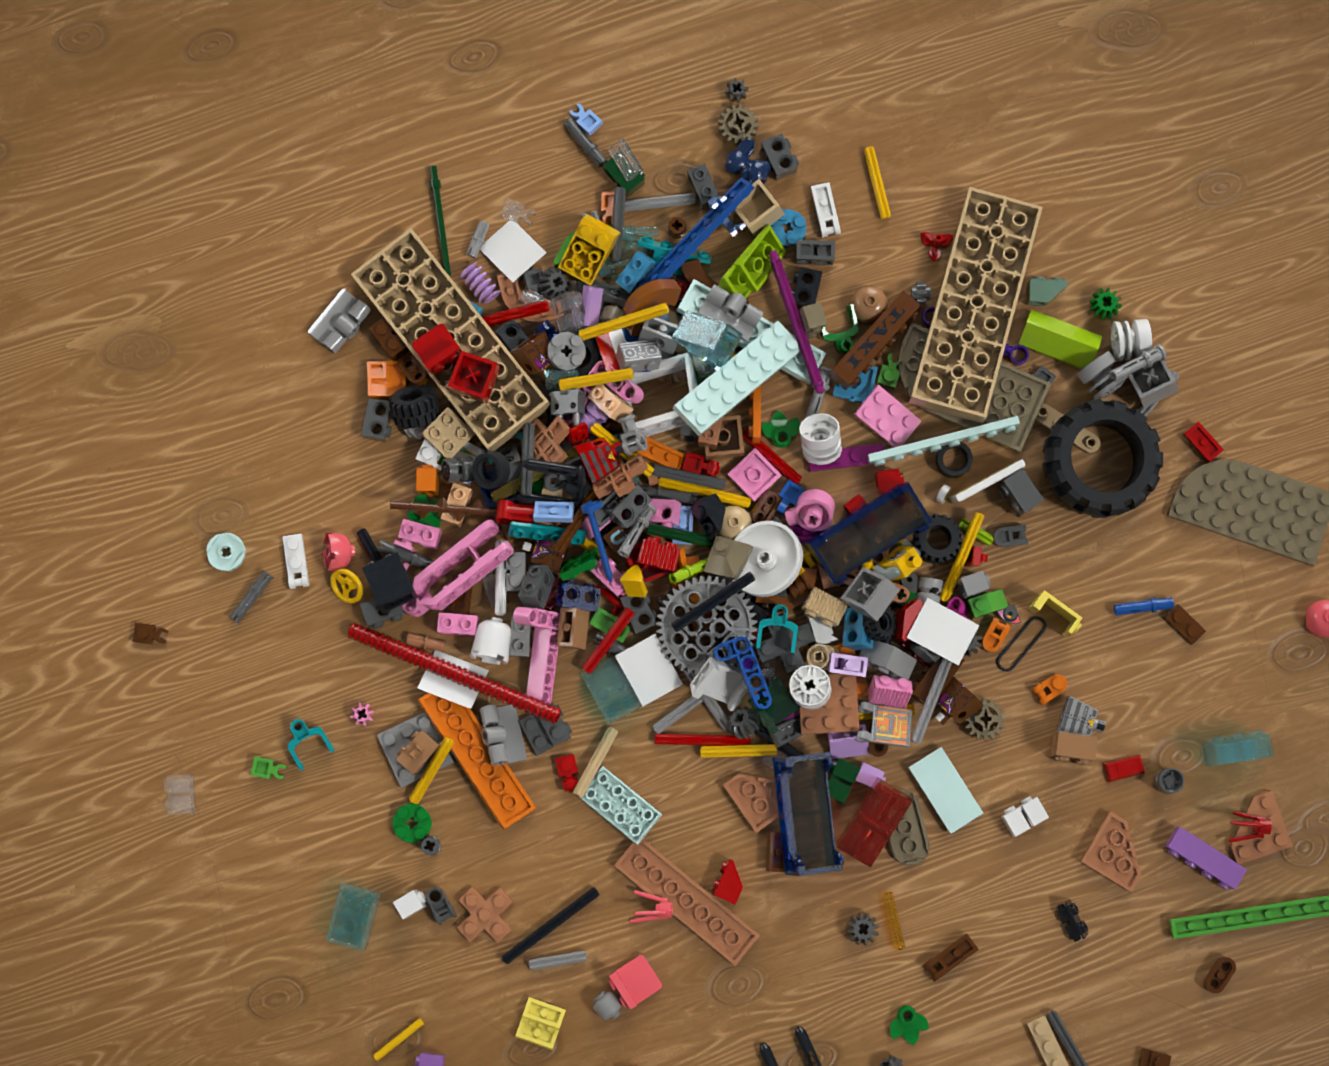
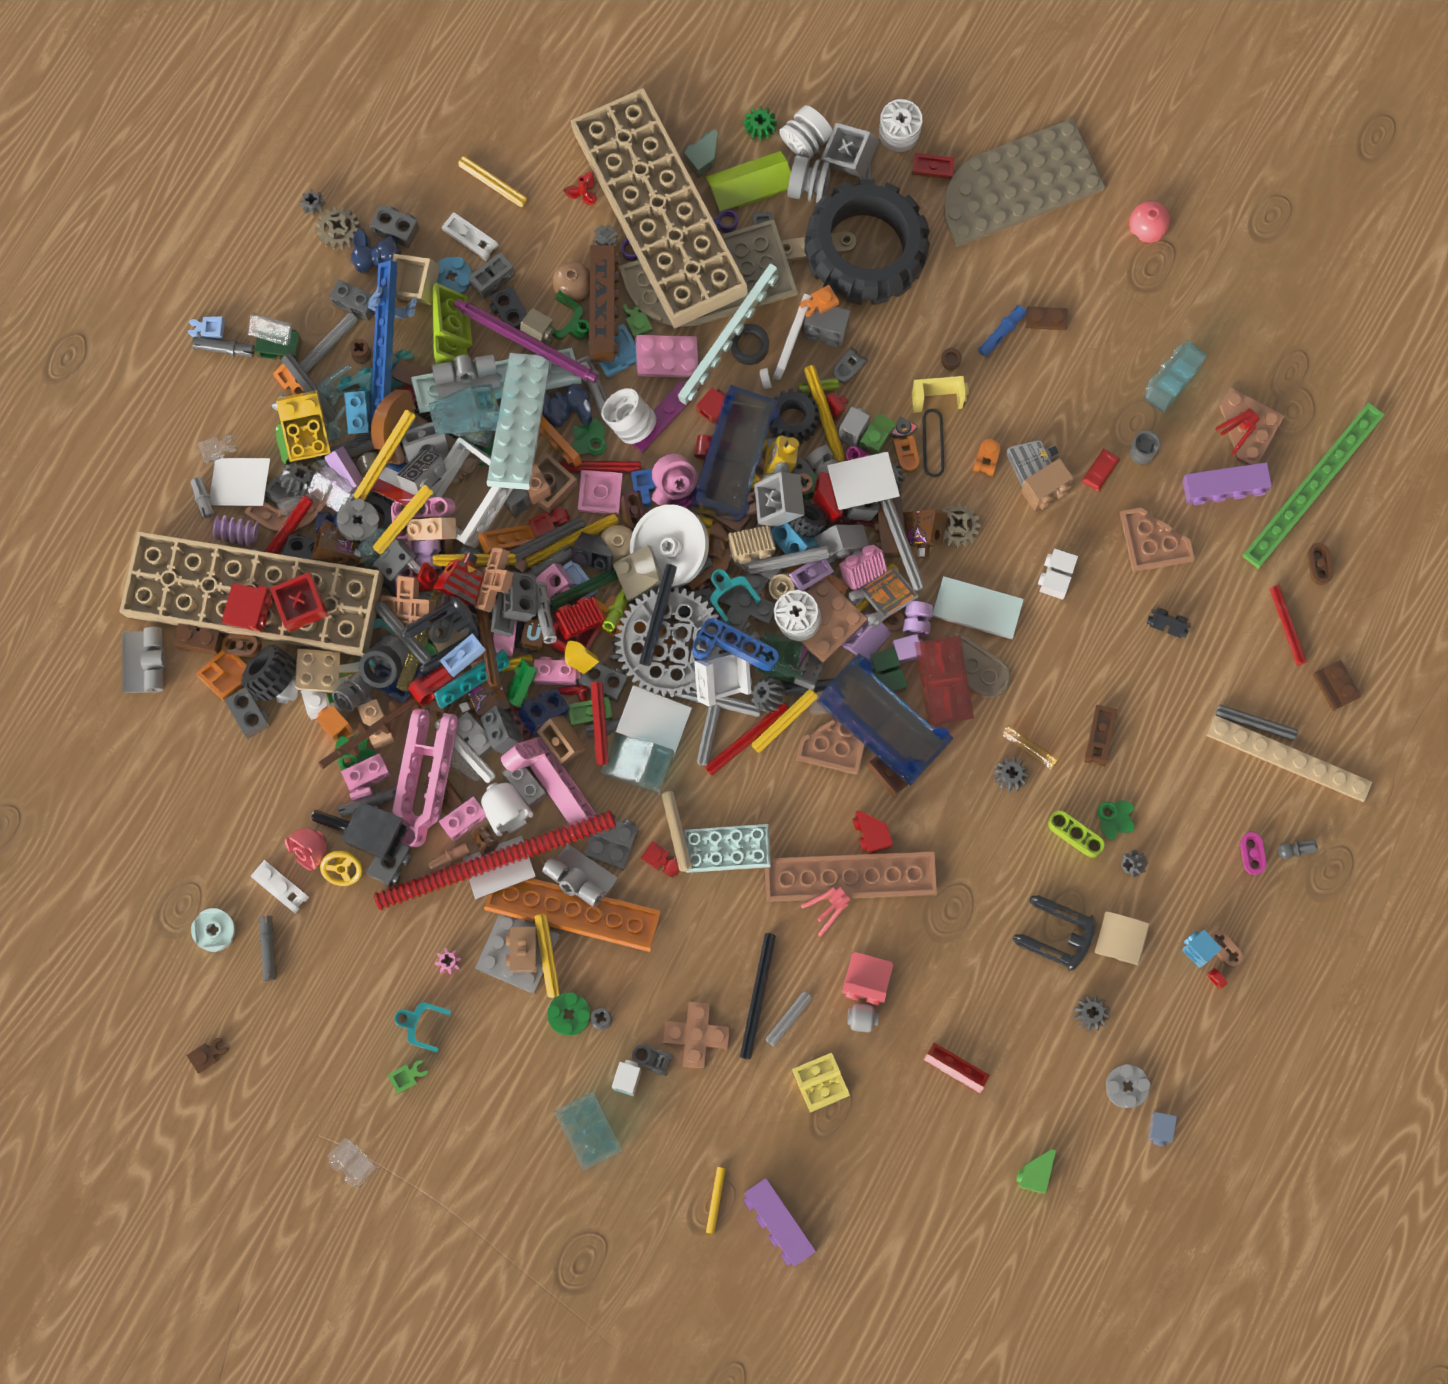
camera: 40 degrees left, 5 degrees down
(435, 186) = (127, 485): dark green bar -> none
(459, 652) = (484, 841): none -> reddish brown bush
(589, 508) = (490, 624): blue piece -> none
(632, 436) = (473, 539): light grey connector -> none
(777, 390) = (559, 408): none -> dark blue animal
(840, 642) = (789, 560): none -> light grey axle
(874, 1020) = (1086, 834): none -> lime beam
(899, 755) = (917, 621): none -> lavender wheel
(1030, 475) = (822, 300): none -> orange plate
(1089, 594) = (951, 359): none -> reddish brown tile
(1145, 359) = (831, 135): light grey pin -> none
(1156, 997) = (1287, 625): none -> red axle
(1194, 392) = (898, 135): none -> white wheel

